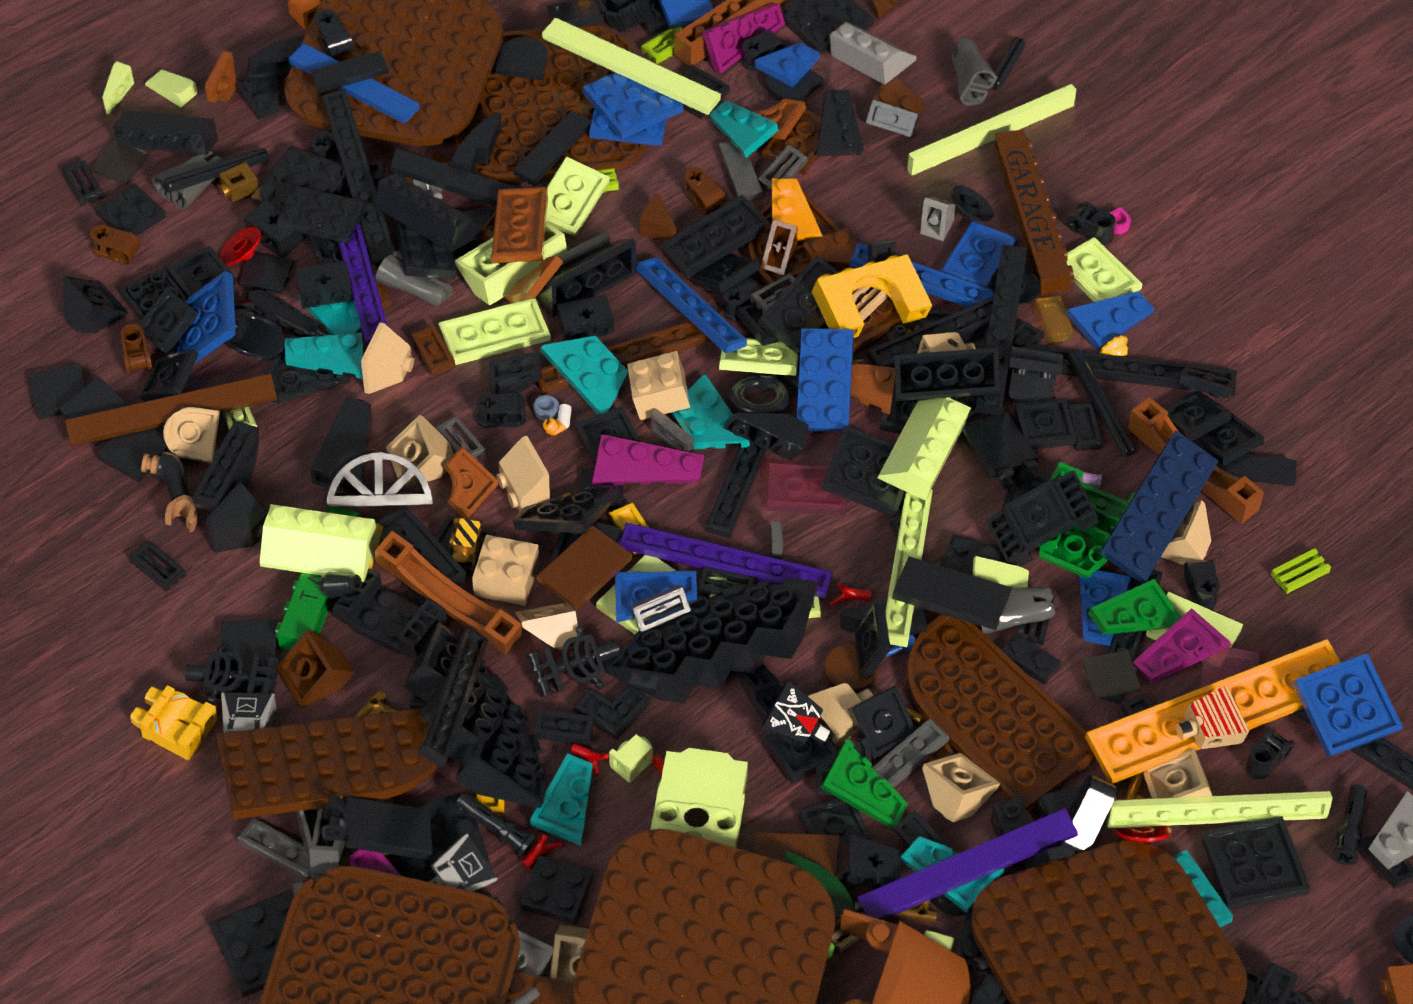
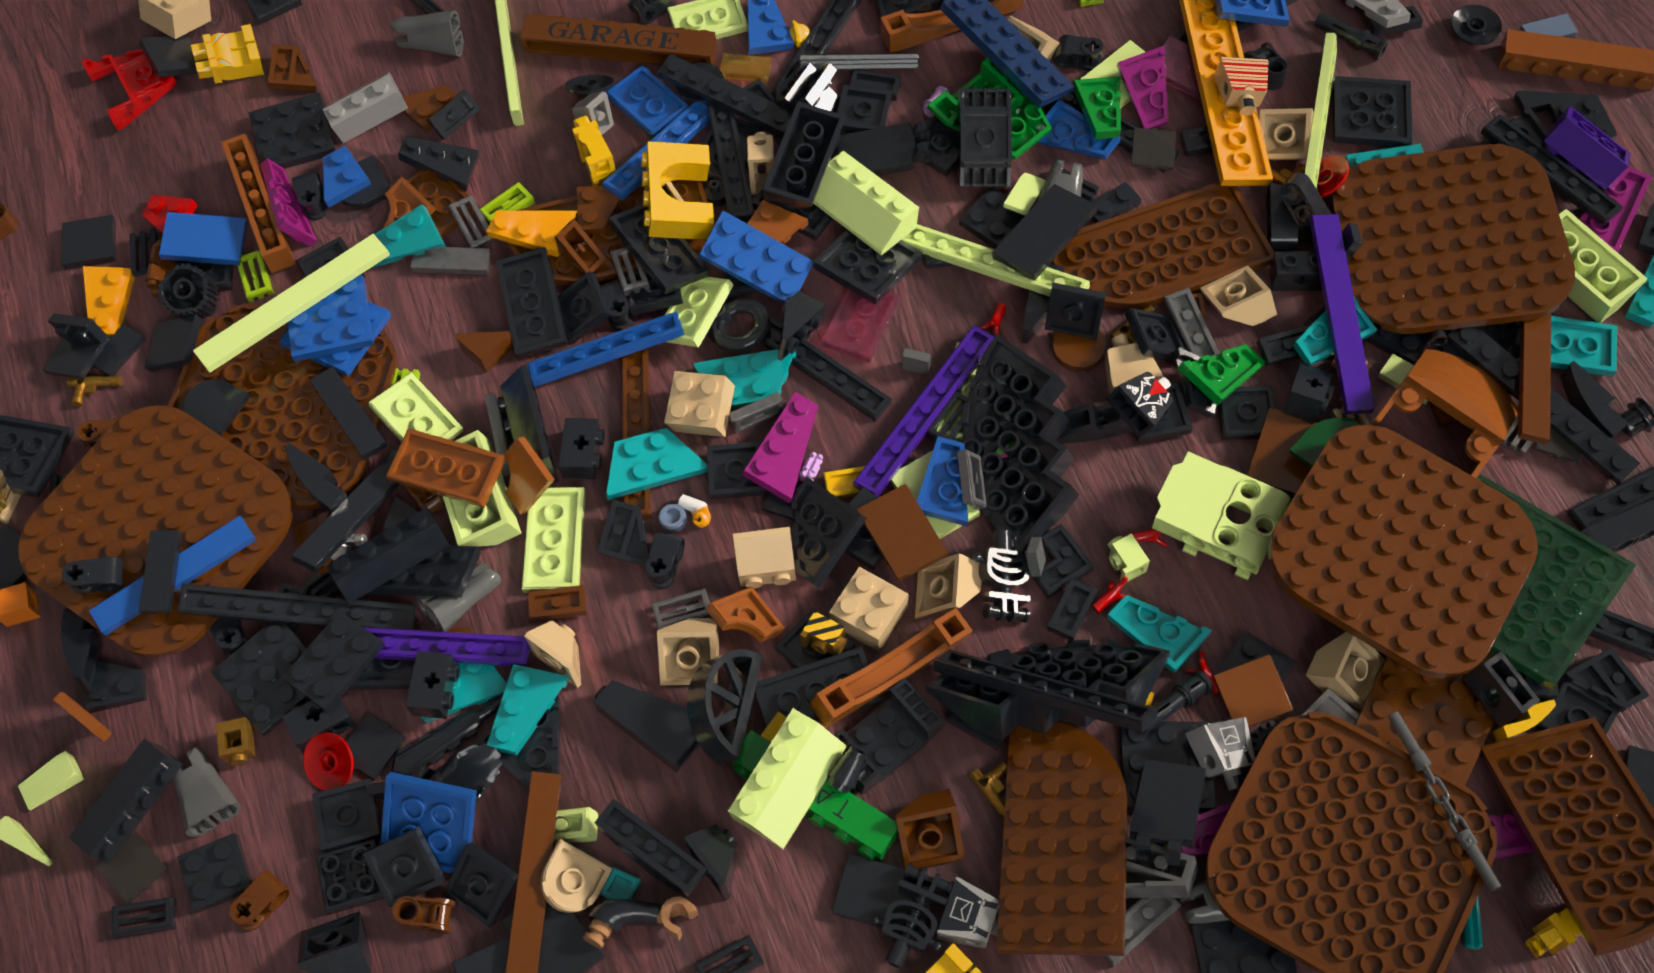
camera: 65 degrees left, 10 degrees up
(195, 471) = (620, 885): none -> teal tile
(212, 171) = (211, 760): black axle -> none
(527, 884) = (1254, 691): none -> dark orange tile
(603, 680) = (1035, 556): none -> dark grey tile
(633, 491) = (811, 466): none -> lavender piece
(702, 190) = (467, 298): reddish brown piece -> none
(819, 197) = (521, 201): none -> lime tile
(881, 250) = (629, 165): black tile -> none
(896, 223) = (593, 150): none -> yellow hips

